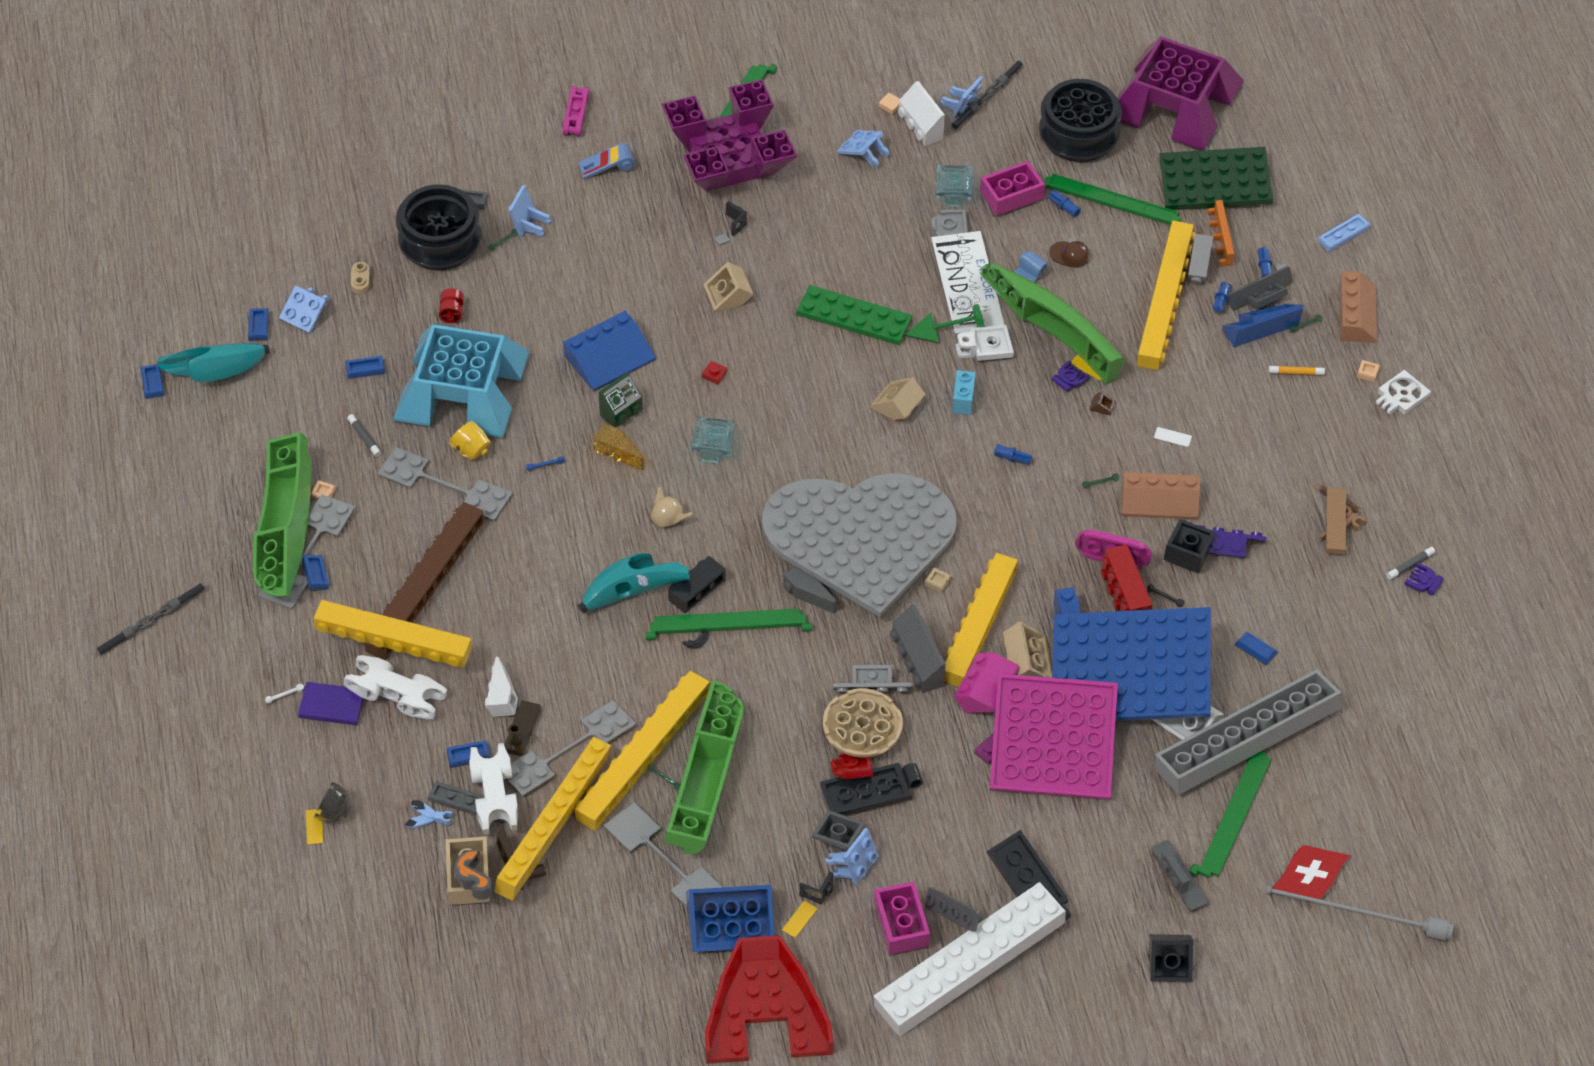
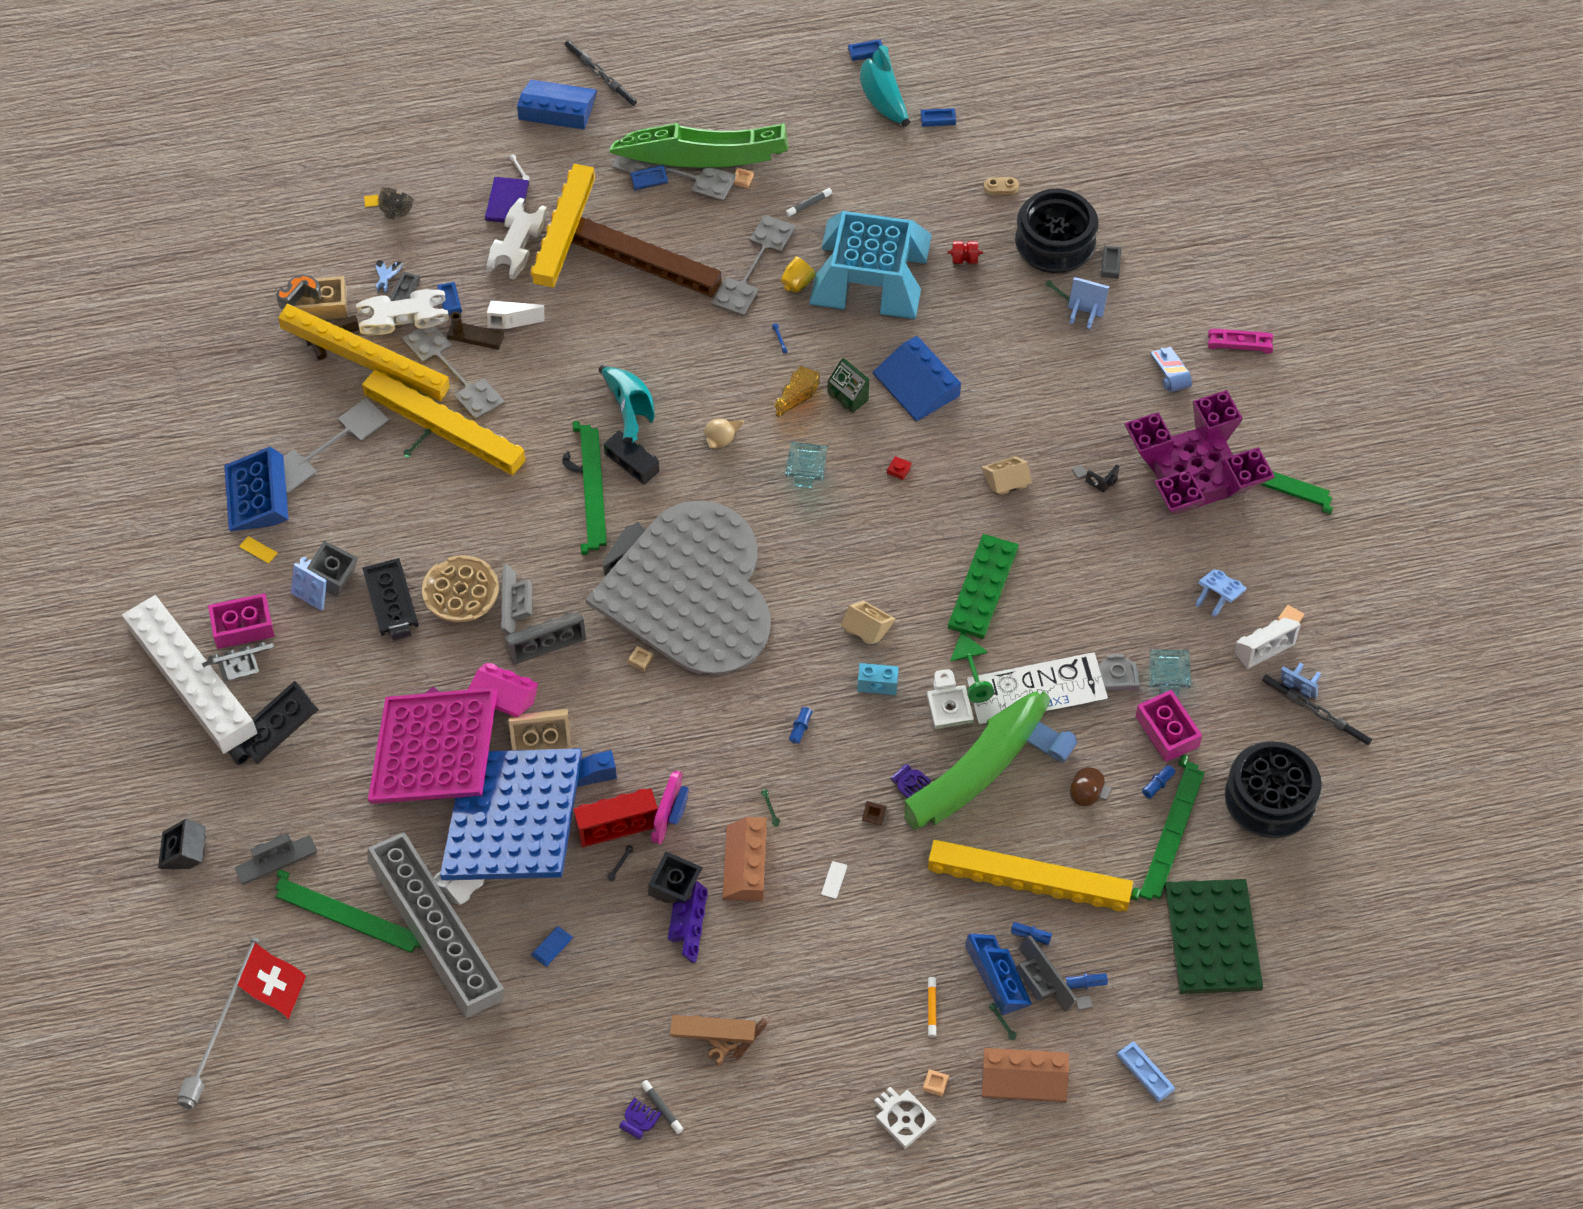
camera: 90 degrees right, 5 degrees up
(193, 657) = (556, 104): none -> blue slope
(303, 308) = (954, 143): light blue plate -> none
(364, 367) = (891, 197): blue tile -> none
(705, 769) = (413, 465): bright green slope -> none
(761, 986) = (181, 516): red piece -> none
(819, 895) = (280, 563): black bracket -> none
(851, 767) = (410, 582): red tile -> none
(980, 617) = (590, 692): yellow brick -> none
(1182, 82) = (1316, 896): magenta slope -> none
(1200, 258) = (1083, 910): light grey slope -> none
(1223, 234) = (1127, 939): orange hinge -> none

